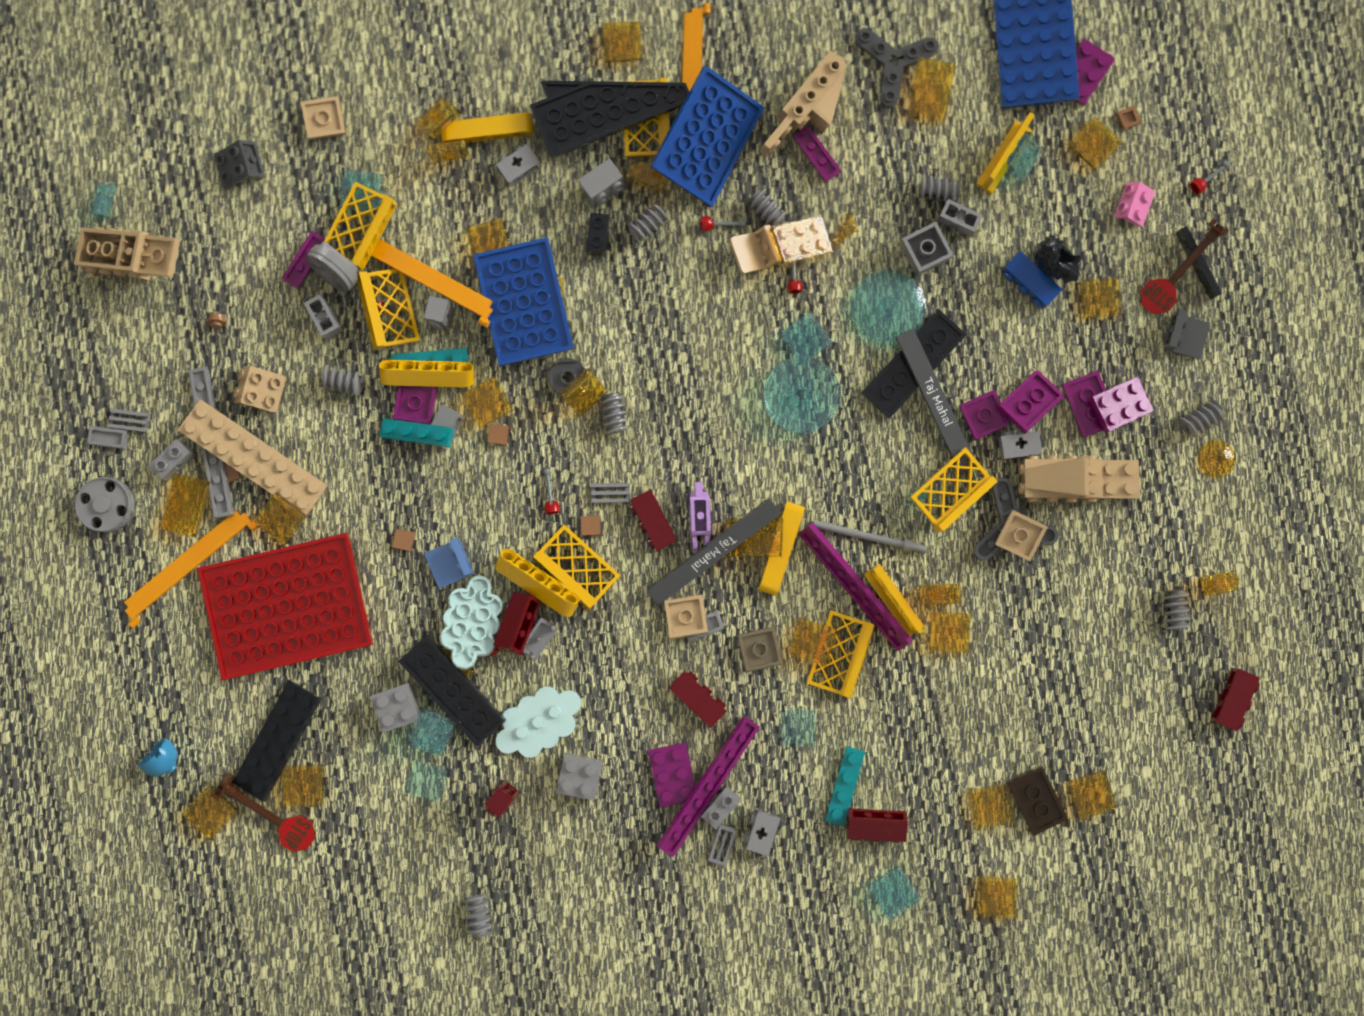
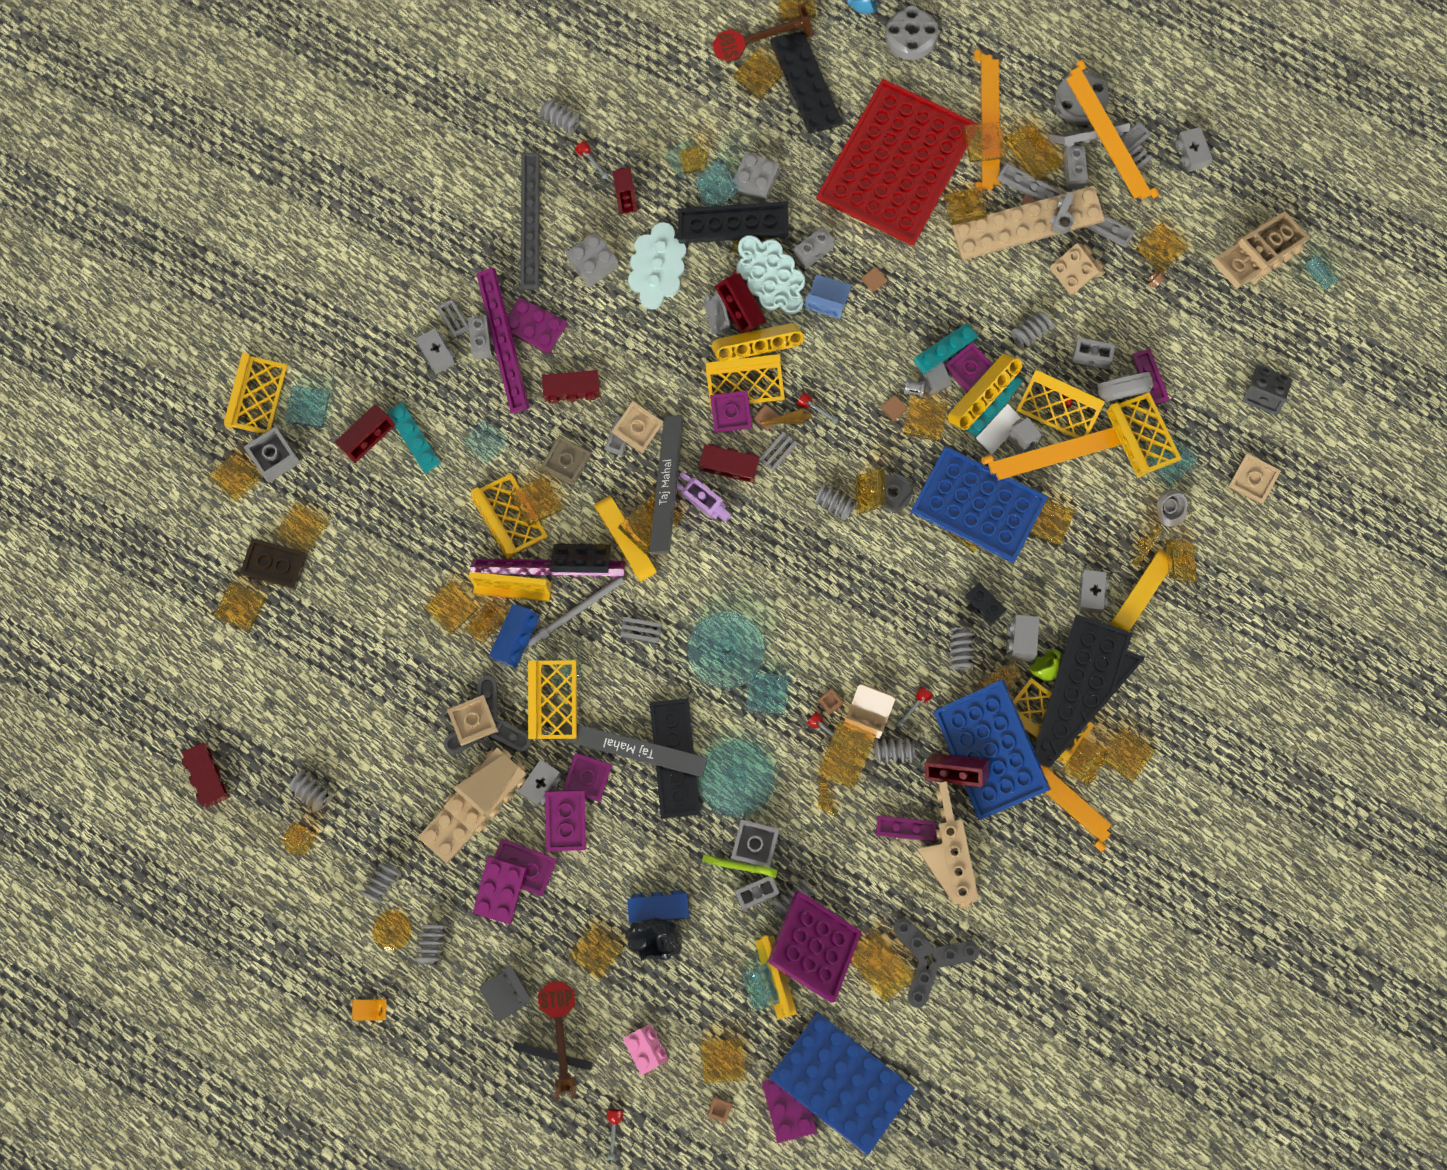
camera: 130 degrees right, 10 degrees down
(67, 382) = (1193, 149): none -> light grey brick
(121, 455) = (1108, 134): none -> light orange piece
(134, 474) = (1085, 136): none -> light grey wing
(173, 692) = (922, 41): none -> light grey piece
(185, 338) = (1162, 247): none -> clear yellow plate
(210, 550) = (984, 142): none -> clear yellow plate
(216, 436) = (1063, 204): none -> light grey plate
(400, 159) = (1172, 507): none -> light grey hat
(418, 608) = (814, 248): none -> light grey brick
(425, 771) = (692, 159): none -> clear yellow brick
(446, 340) = (998, 429): none -> white sticker
(468, 432) = (914, 387): none -> light grey bush
(491, 868) = (583, 149): none -> hinge
(571, 502) = (794, 417): none -> pearl gold piece
(587, 859) = (530, 221): none -> dark grey tile
(605, 149) = (1047, 666): none -> lime hair
(611, 555) = (730, 411): none -> magenta plate
(665, 68) = (1077, 766): none -> clear yellow brick
(744, 148) = (957, 770): none -> dark red brick
(770, 288) = (830, 701): none -> medium nougat tile
(827, 566) = (580, 558): none -> black plate
(833, 478) = (640, 637): none -> light grey tile
(929, 959) = (240, 387): none -> yellow fence
(930, 562) = (514, 636): none -> blue brick
(940, 218) = (740, 866): none -> lime piece
(957, 882) = (272, 454): none -> light grey brick
(964, 140) = (814, 947): none -> magenta plate
(1192, 494) = (381, 881): none -> light grey piece
(1285, 422) = (369, 1009): none -> light orange bracket

